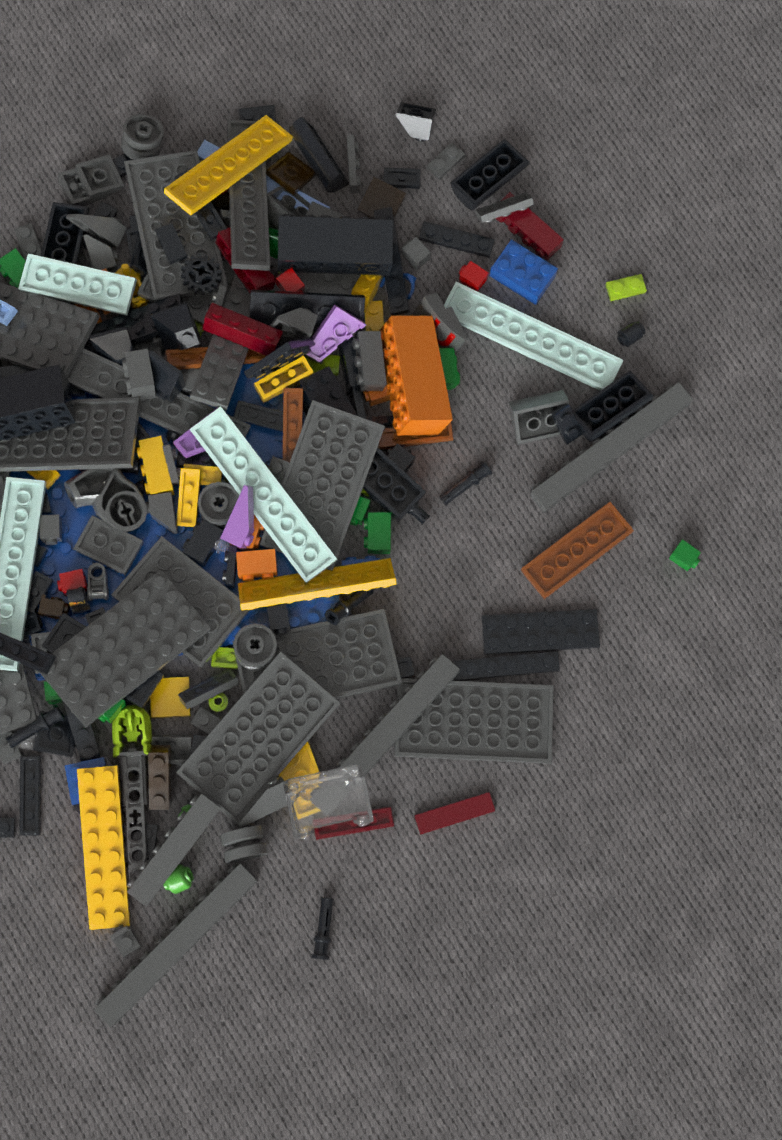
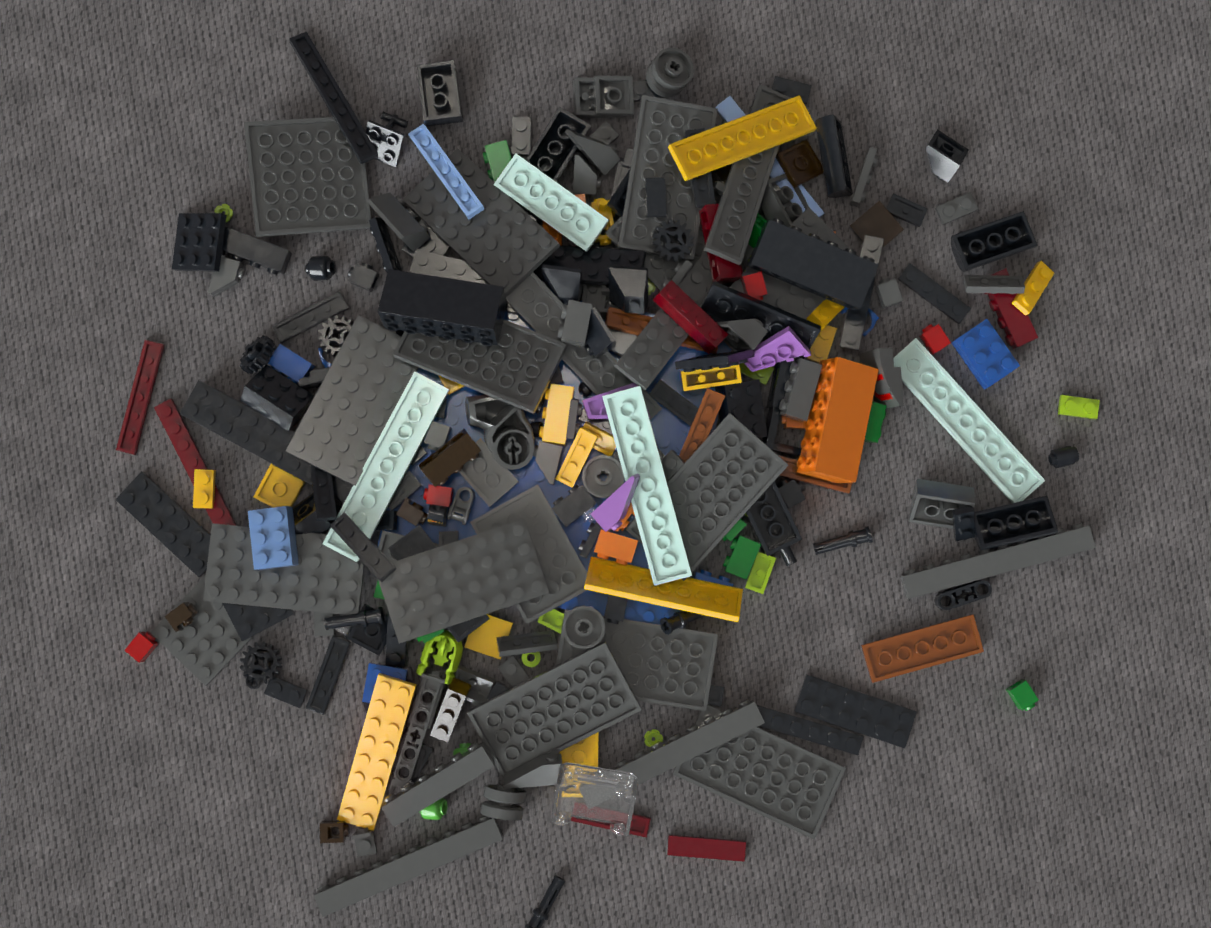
camera: 30 degrees right, 10 degrees up
(70, 541) = (450, 458): none -> dark brown brick
(83, 939) = (327, 834): none -> dark brown brick
(358, 730) = (653, 733): none -> lime plate
(401, 540) = (760, 573): none -> lime plate
(541, 198) = (1034, 287): none -> yellow plate
(592, 482) = (958, 591): none -> black beam

